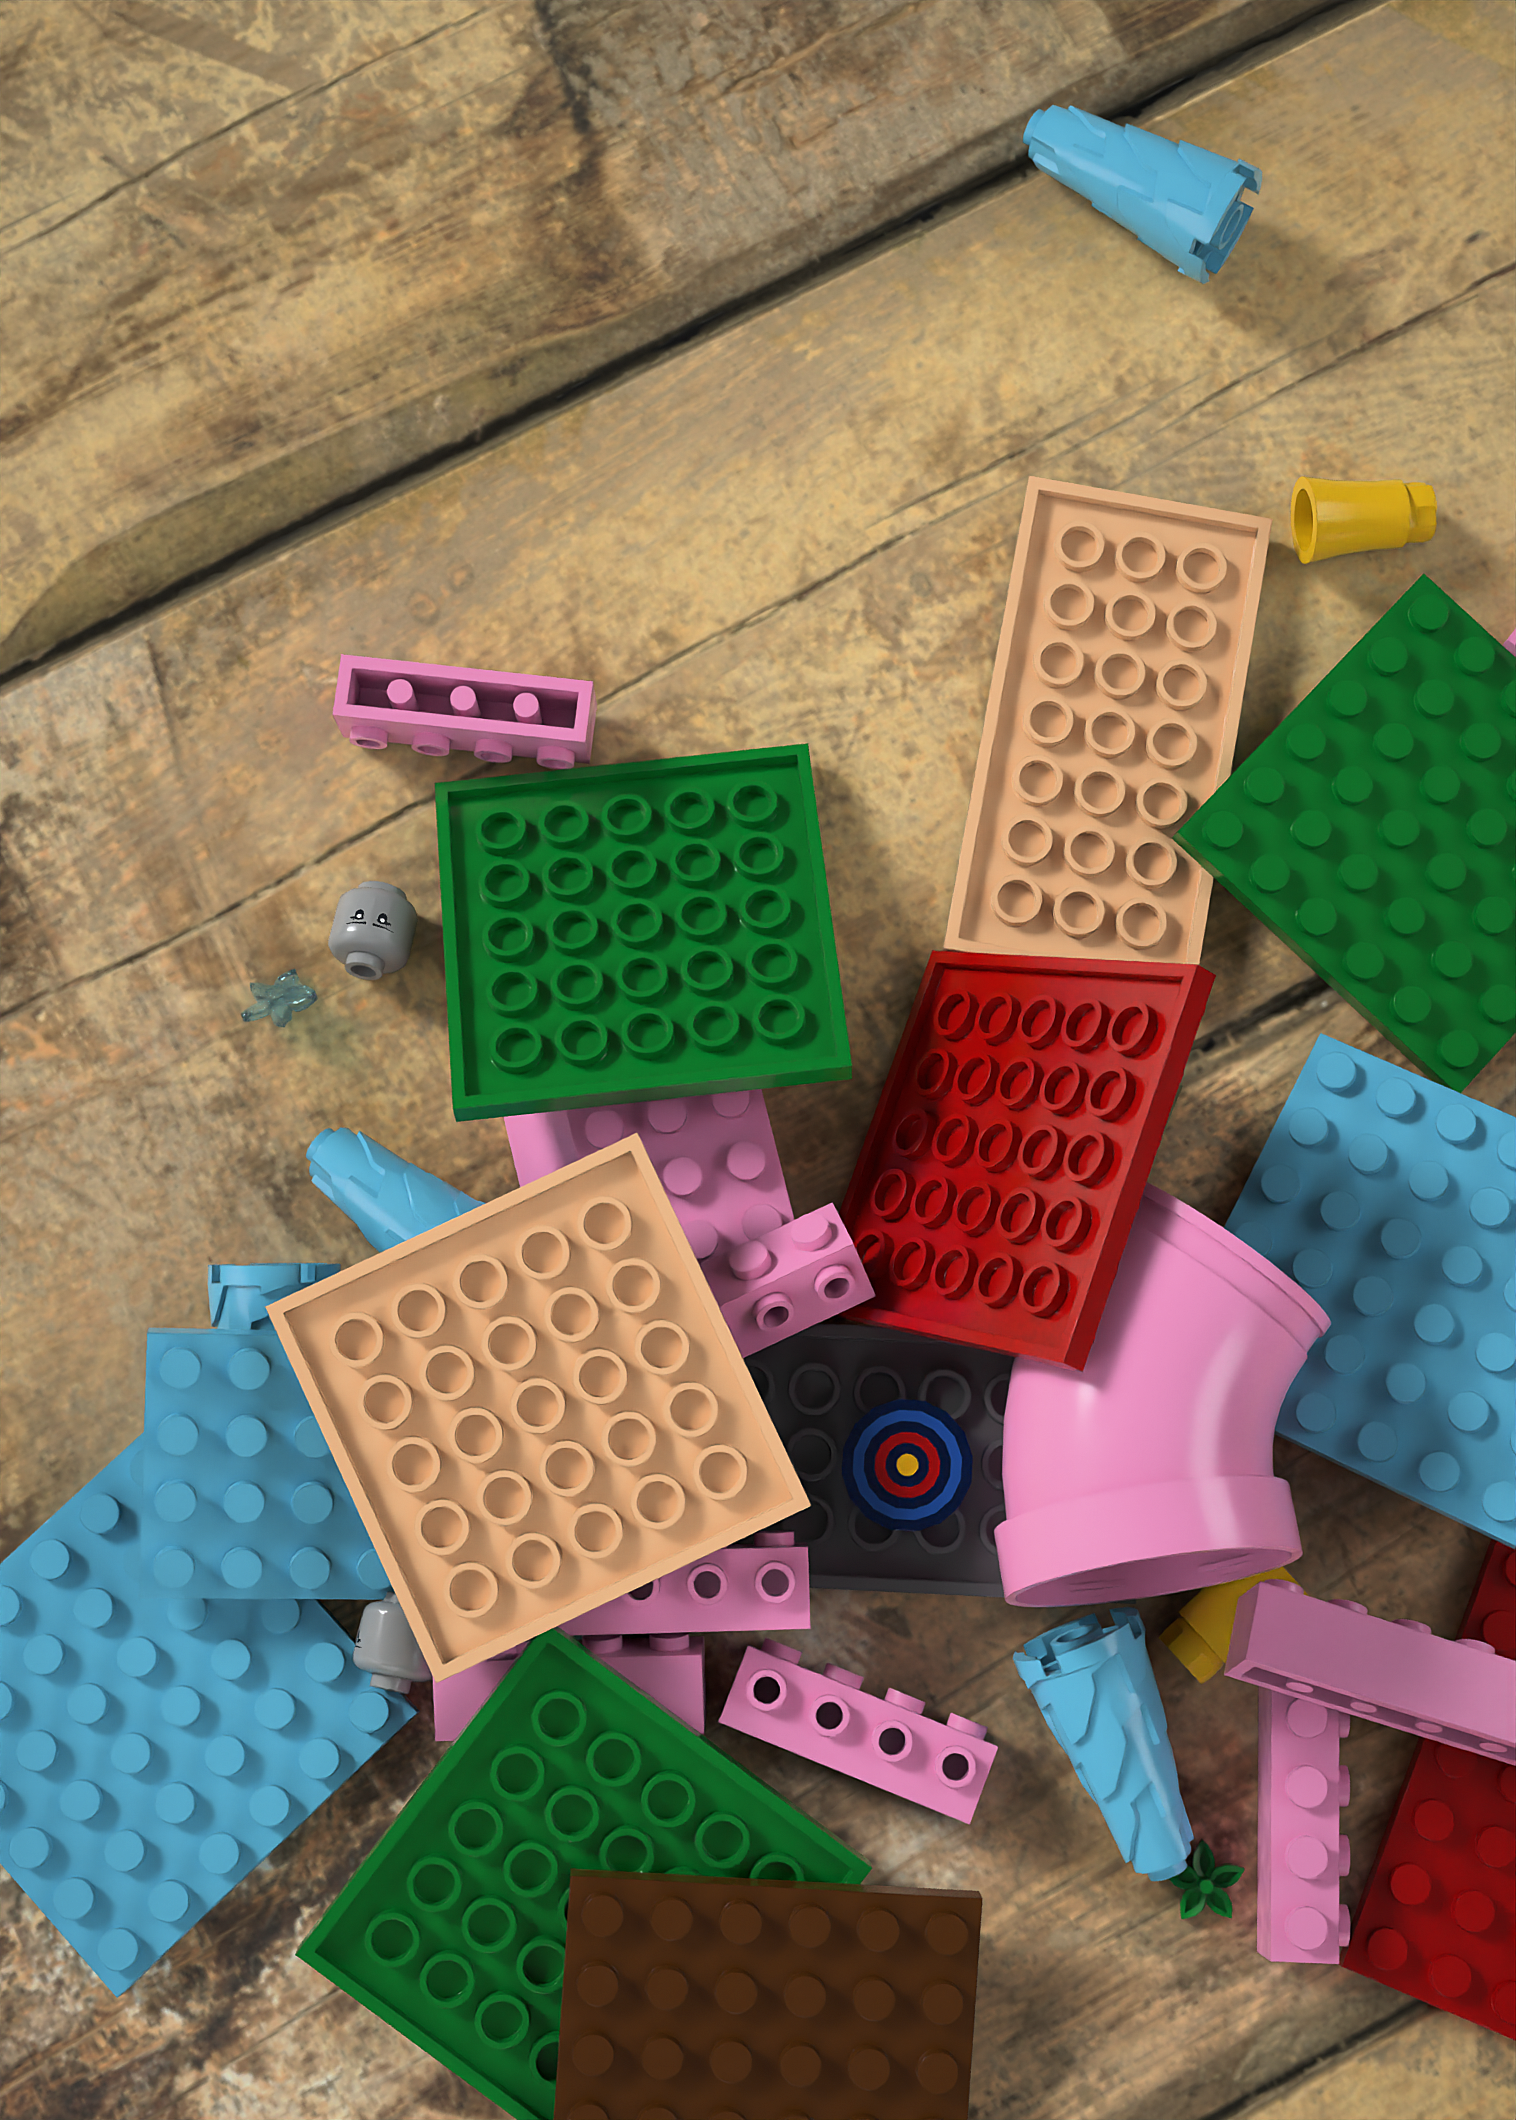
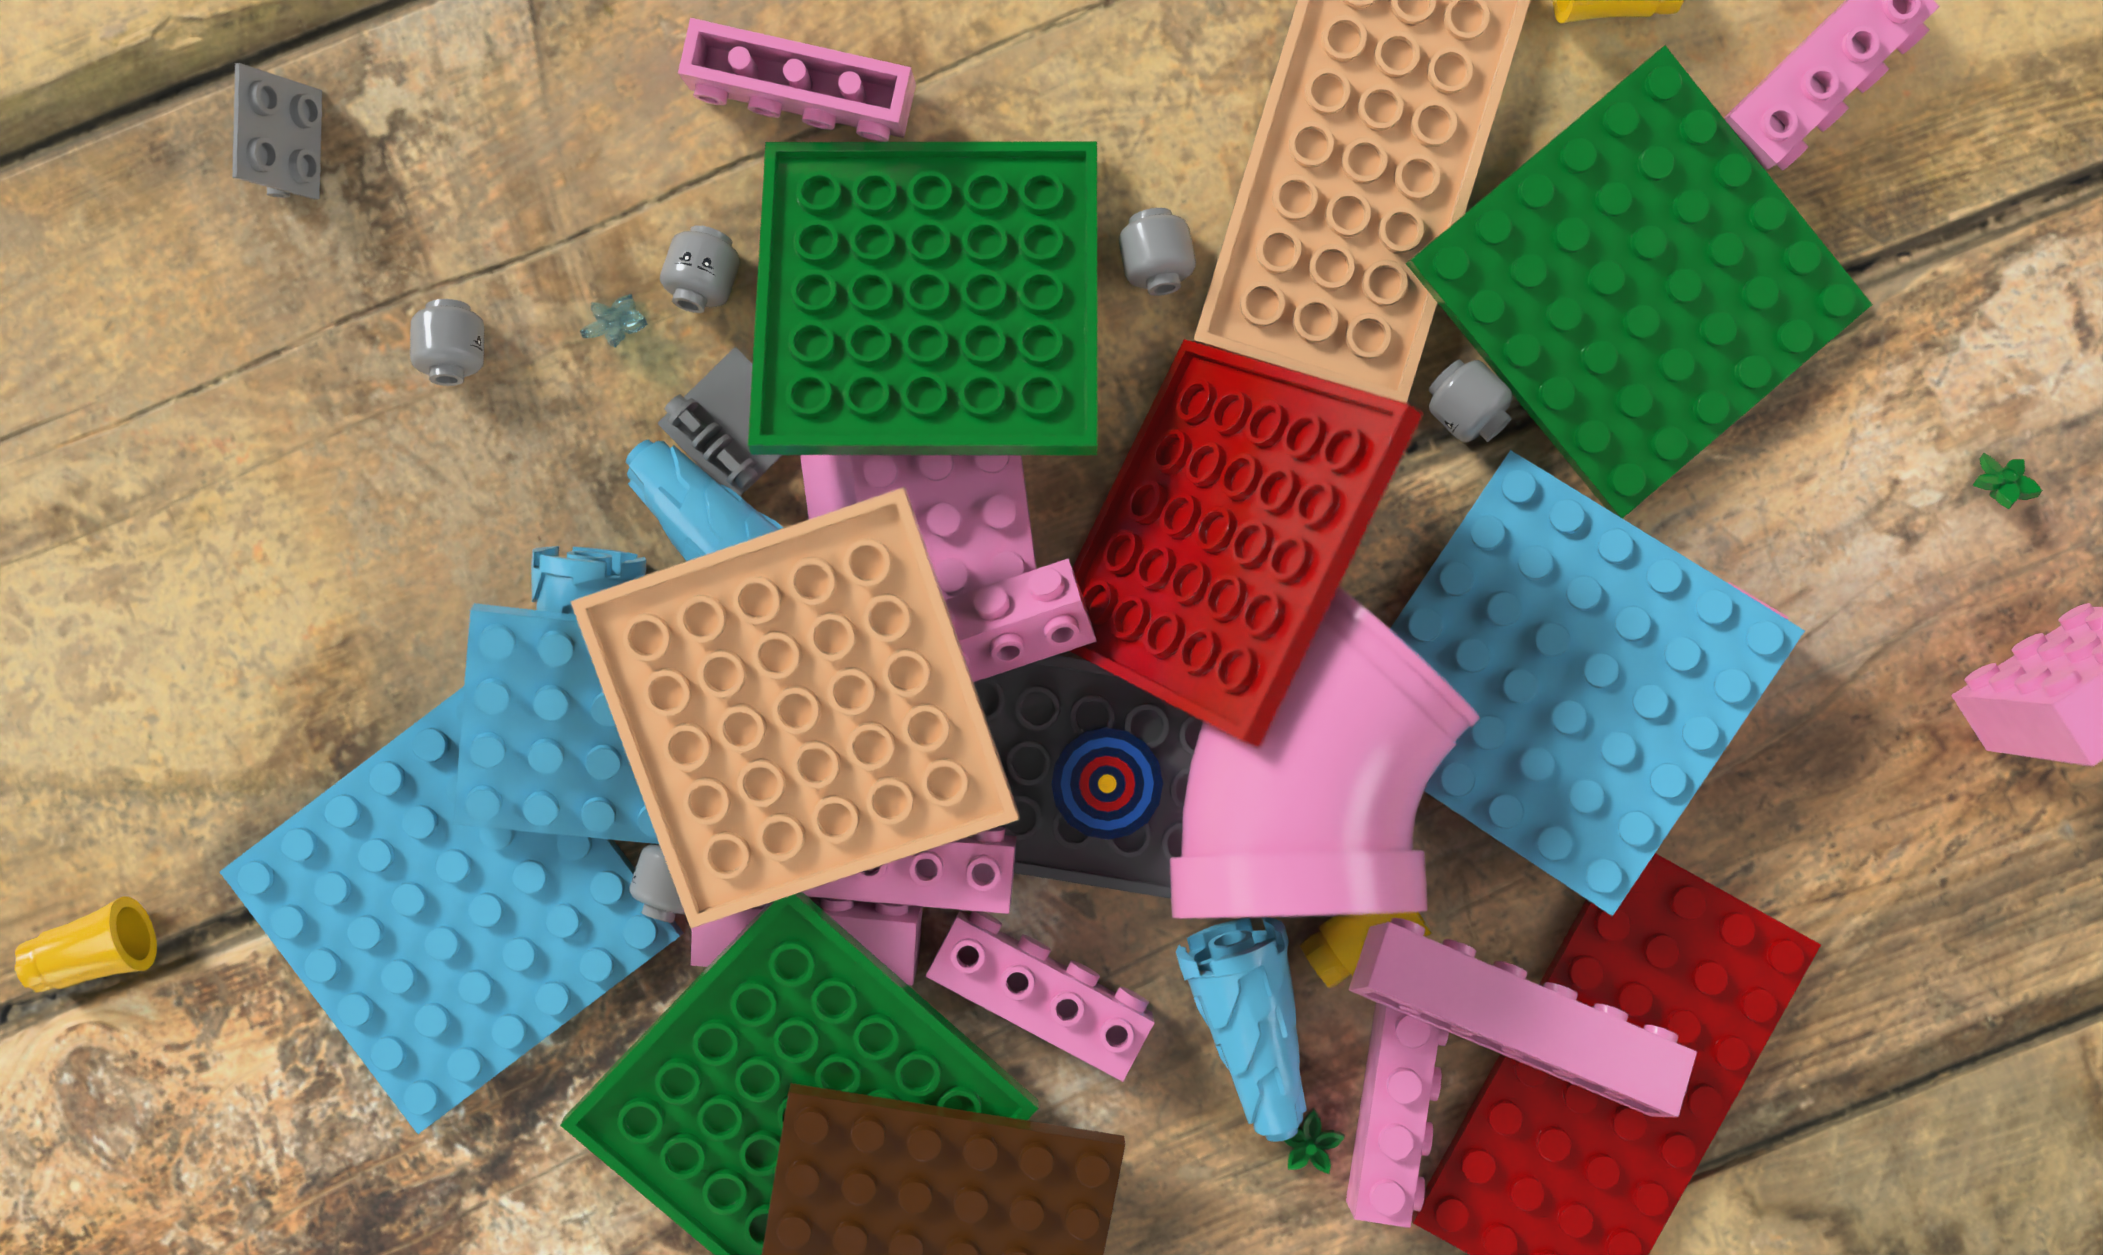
camera: 10 degrees right, 10 degrees up
(88, 1042) = (447, 341): none -> light grey head
(410, 1105) = (714, 424): none -> light grey hinge
(890, 855) = (1157, 251): none -> light grey head
(1267, 982) = (1470, 401): none -> light grey head

